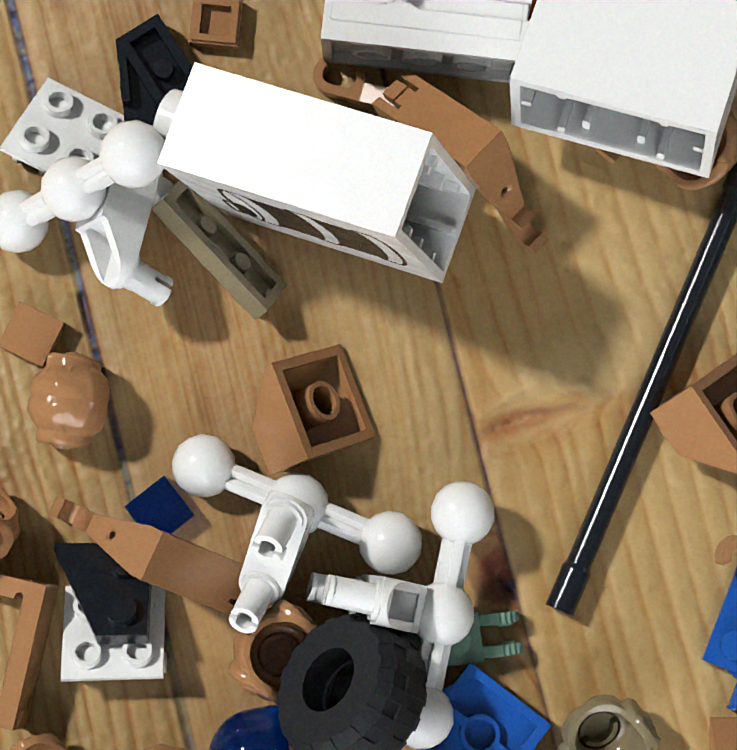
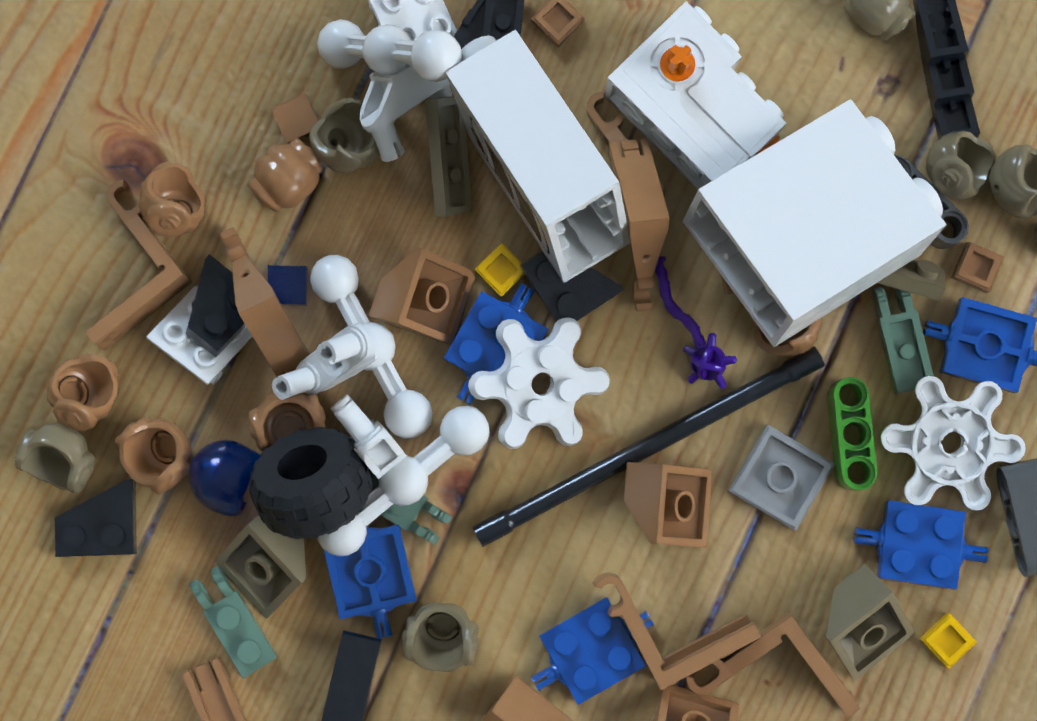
camera: 30 degrees right, 0 degrees up
(86, 300) = (352, 146): none -> dark tan piece
(364, 321) = (500, 270): none -> yellow tile
(419, 400) = (476, 343): none -> blue plate
(461, 295) = (572, 298): none -> black wing
(470, 423) = (514, 379): none -> white plate
(645, 245) = (707, 360): none -> dark purple piece

